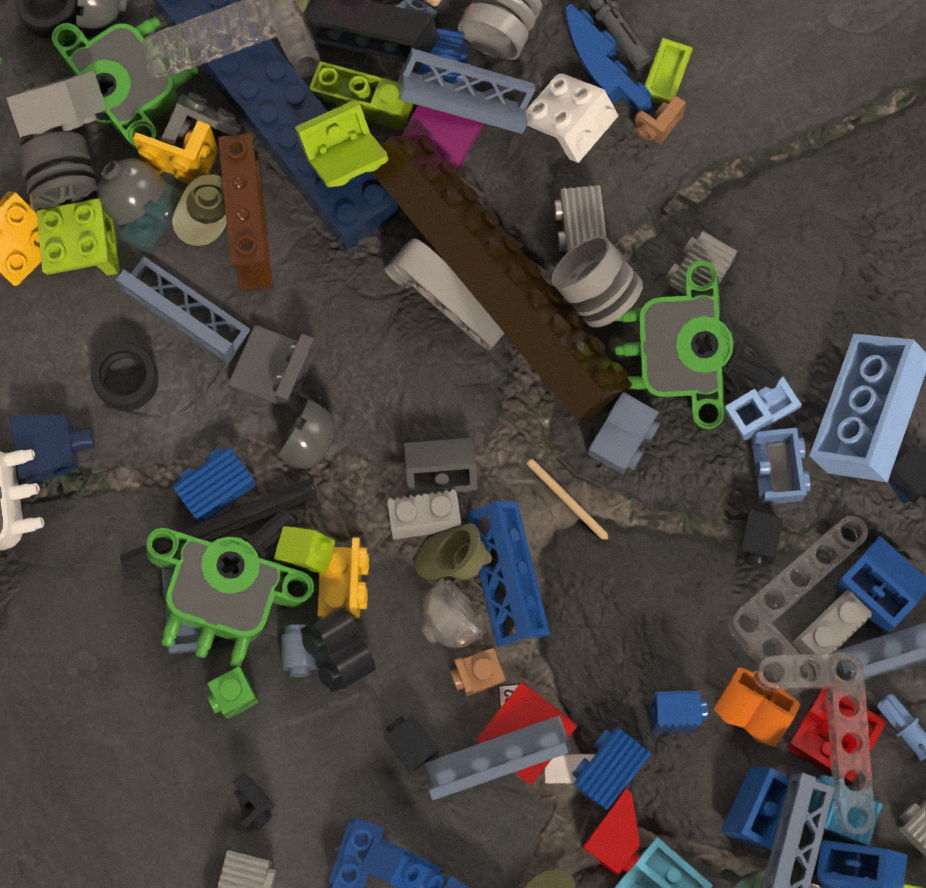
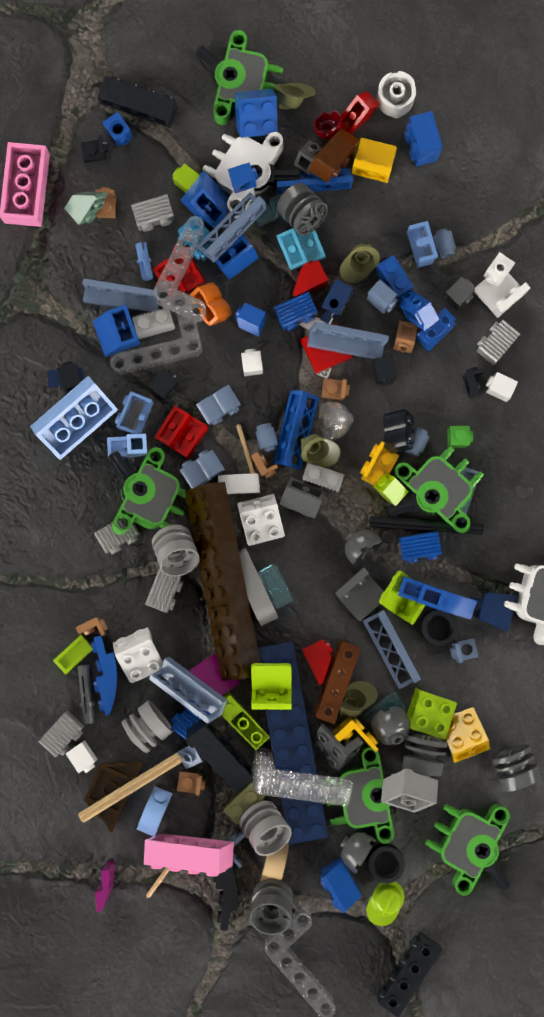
camera: 150 degrees left, 10 degrees up
(76, 352) = (457, 654): none -> sand blue bracket
(146, 406) = (437, 598): none -> blue slope
(198, 392) = (400, 606): none -> lime bracket
(200, 816) = (501, 386): none -> white brick
(292, 238) = (318, 658): none -> red slope
(404, 821) = (405, 337): none -> medium nougat bracket
(414, 313) = (275, 585): none -> clear light blue slope
(475, 863) = (382, 297): none -> sand blue brick
(491, 404) = (261, 519): none -> white bracket
(536, 488) = (260, 463): none -> medium nougat bracket
(548, 535) = (266, 437): none -> sand blue brick
(551, 831) = (339, 293): none -> dark blue torso
(552, 442) = (241, 483): none -> white slope
(636, 644) = (252, 362): none -> white brick
(652, 548) = (219, 405): none -> sand blue brick
(689, 478) = (181, 432): none -> red slope

